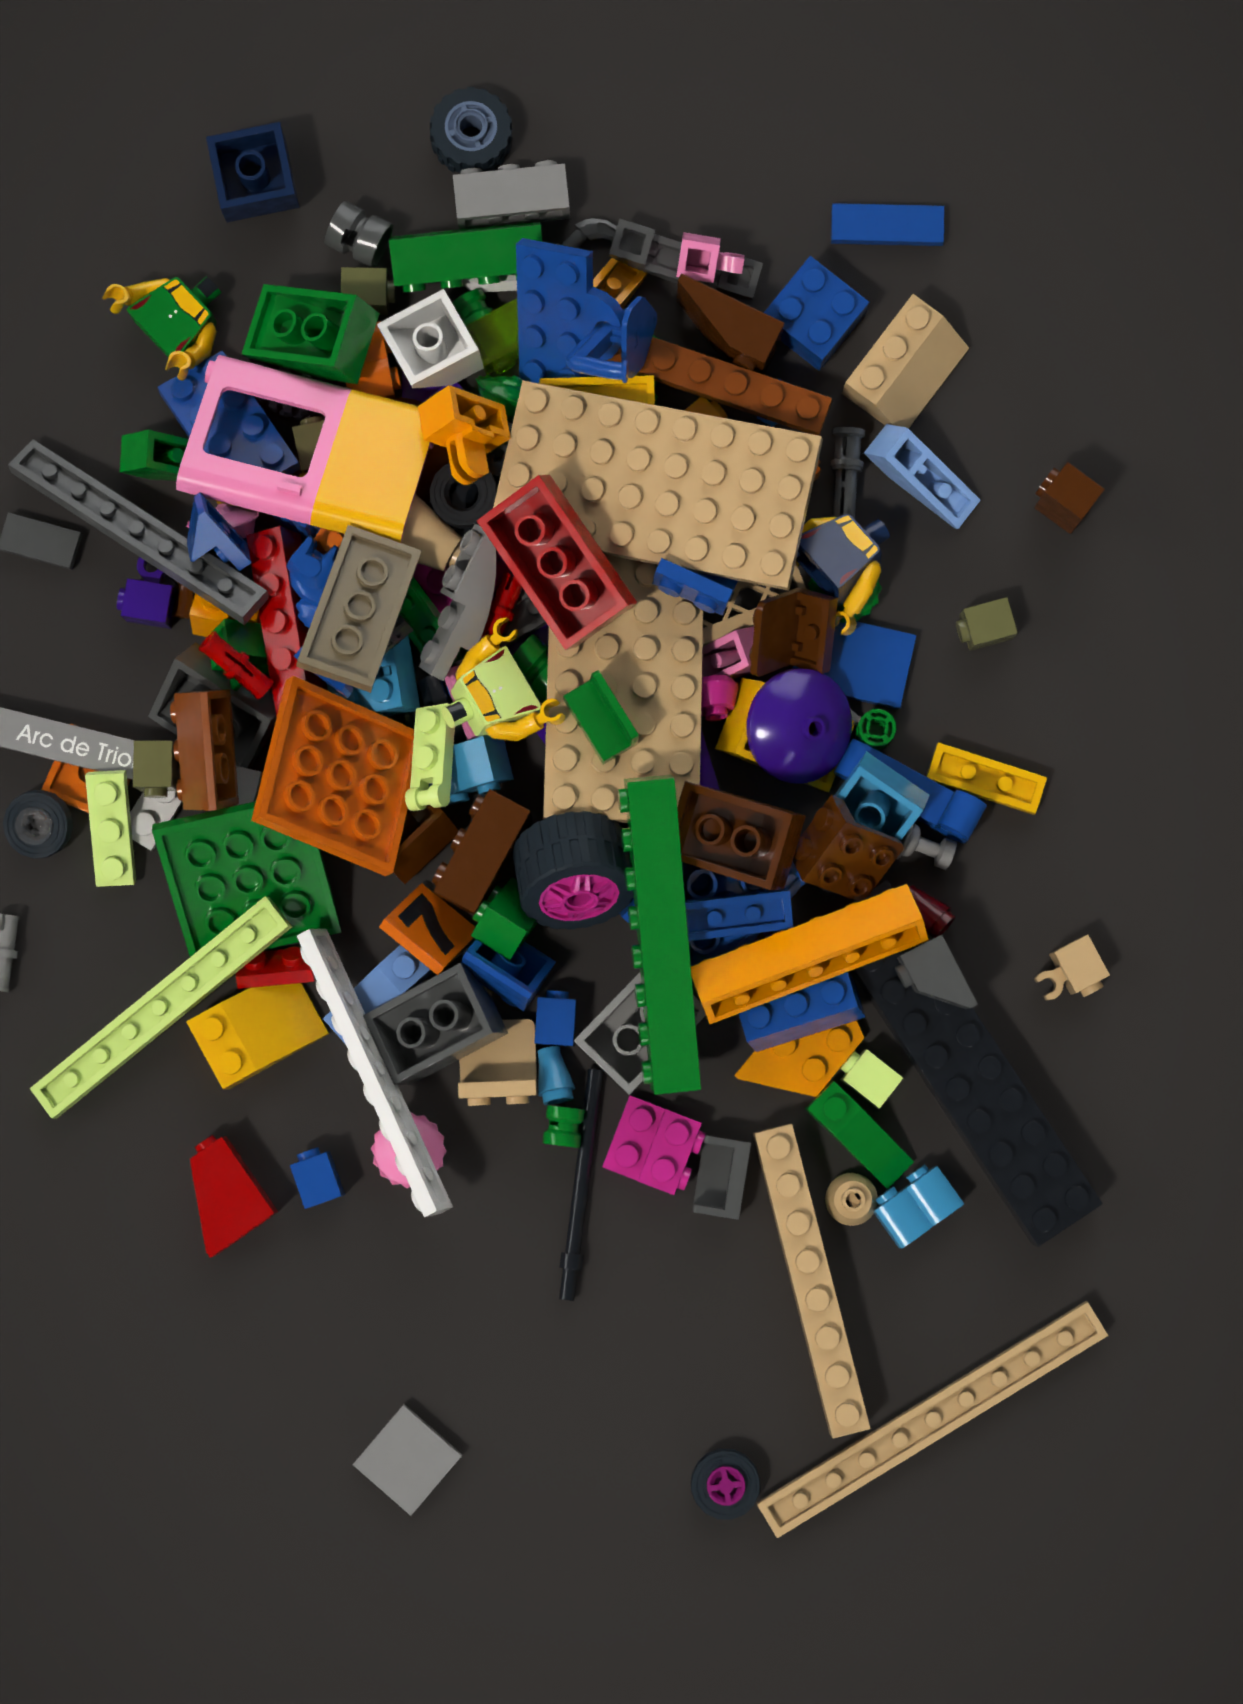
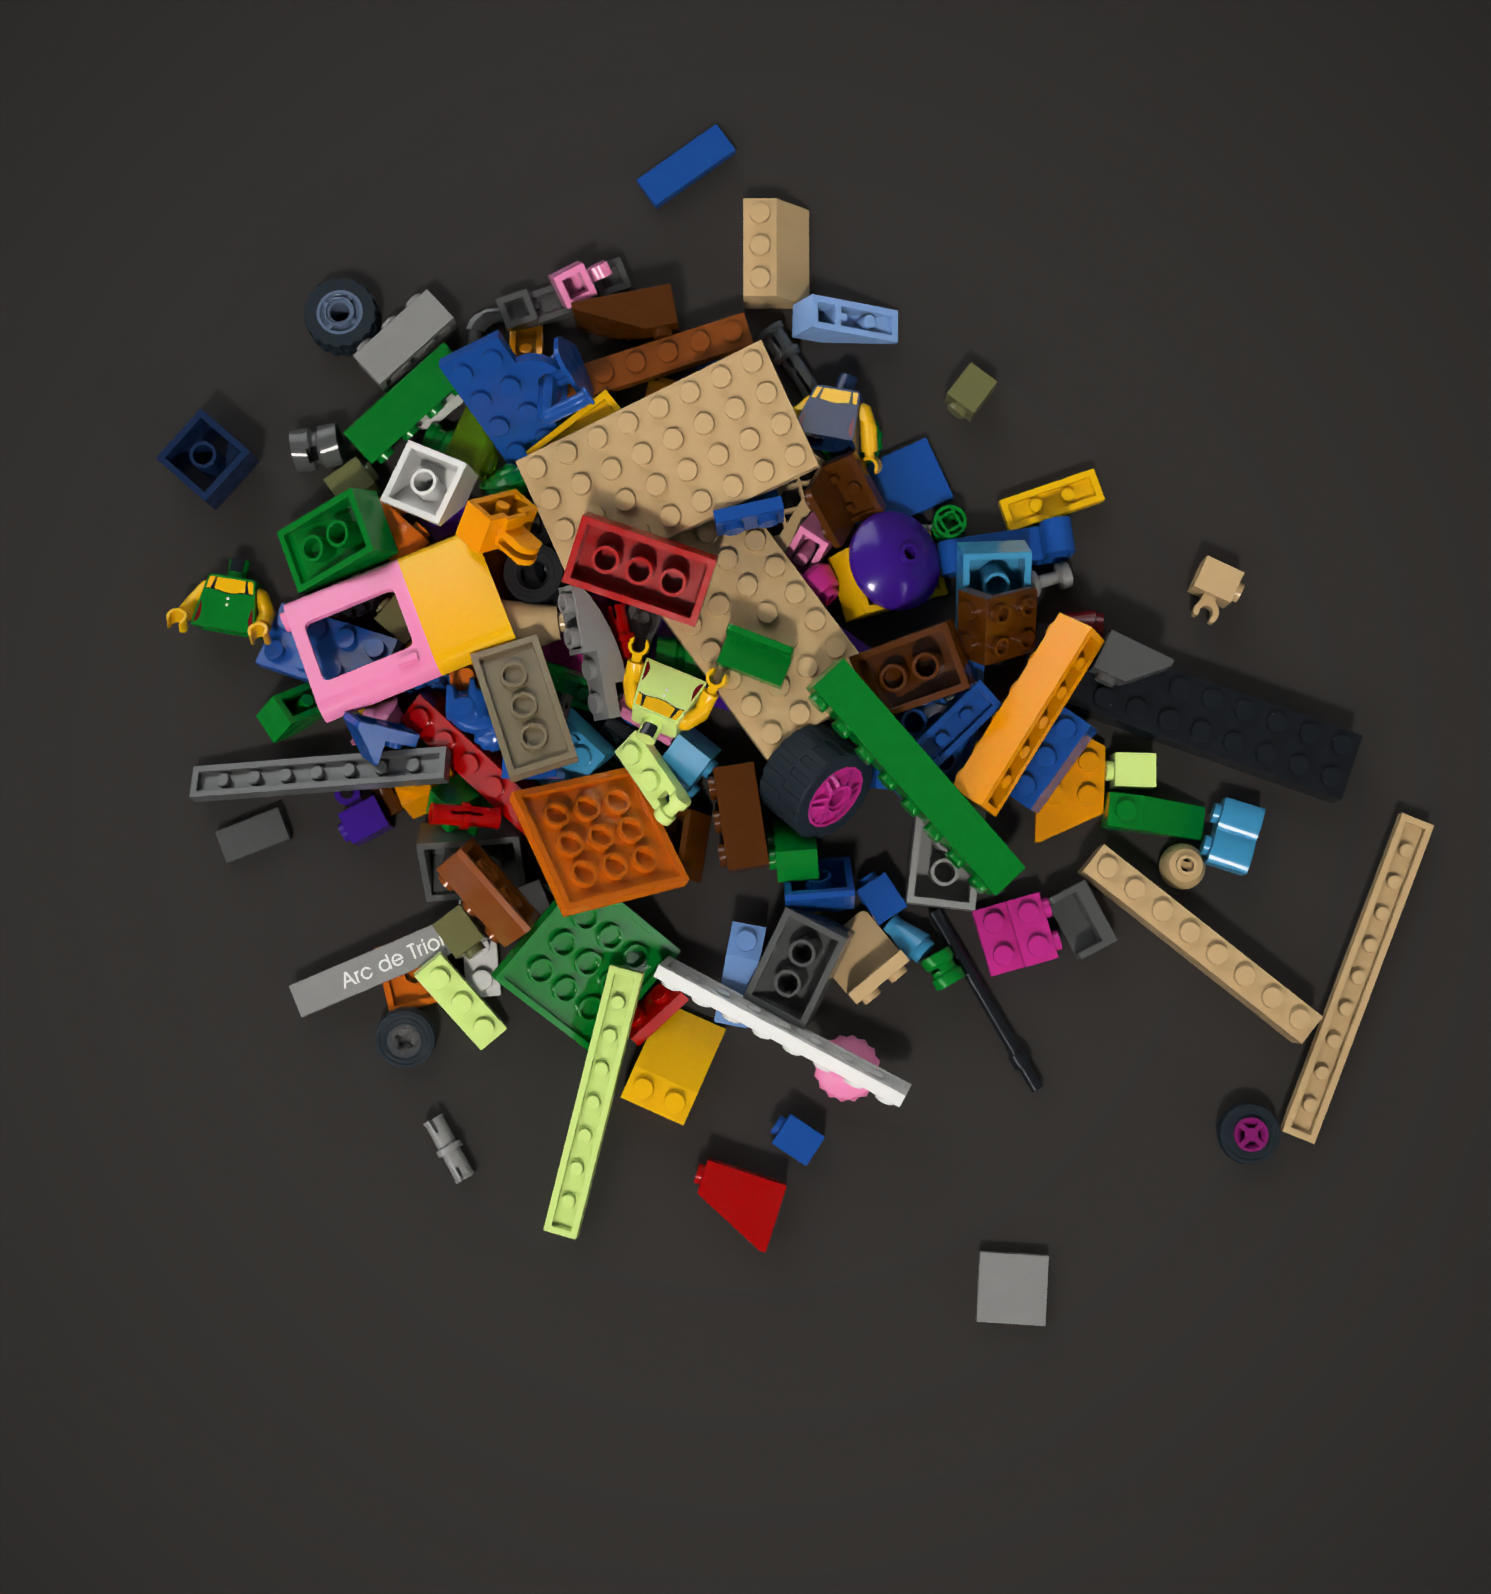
camera: 30 degrees left, 0 degrees up
(429, 929) = (742, 900): orange tile -> none
(817, 312) = (686, 260): blue brick -> none
(1067, 496) = (960, 260): reddish brown brick -> none

